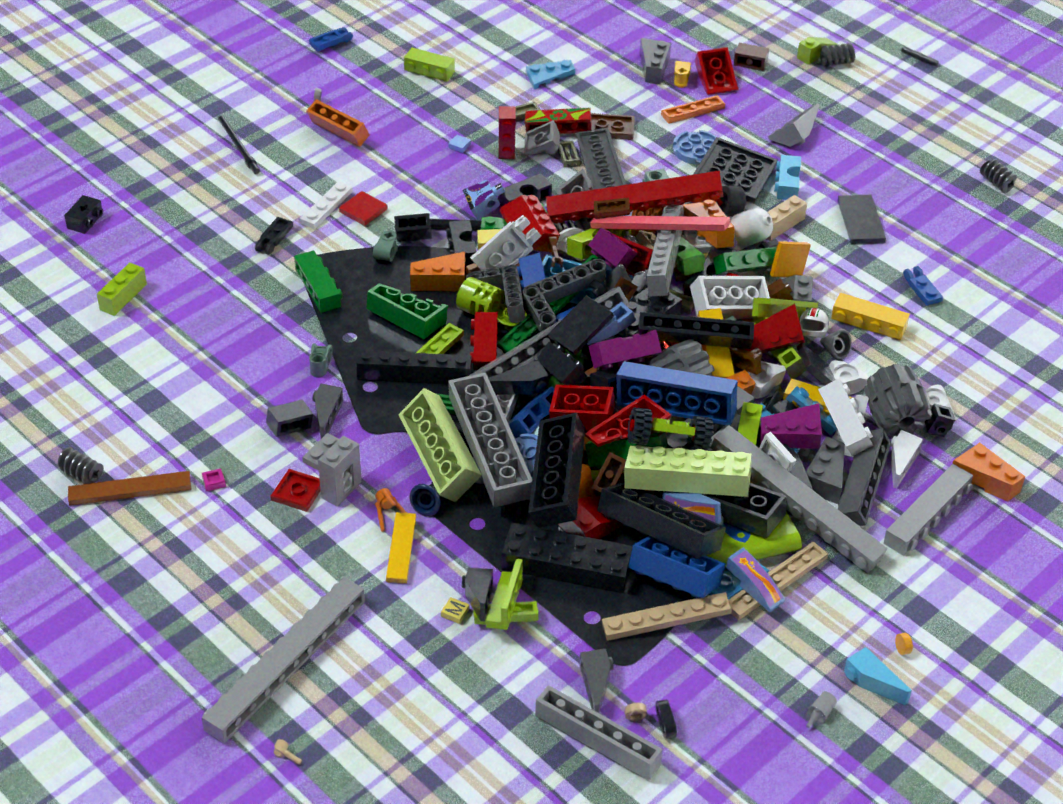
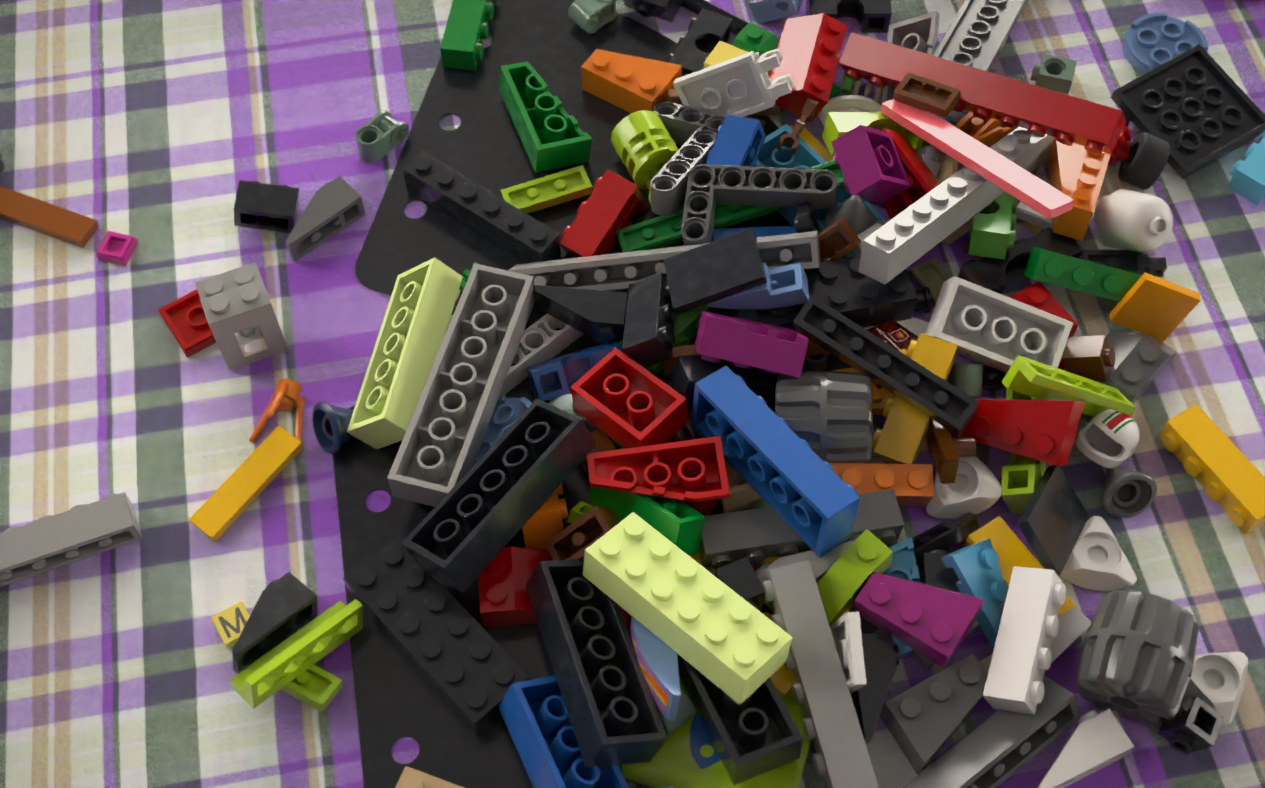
camera: 35 degrees right, 15 degrees up
(641, 425) = (698, 523): black plate -> none
(787, 215) = (1210, 225): tan brick -> none

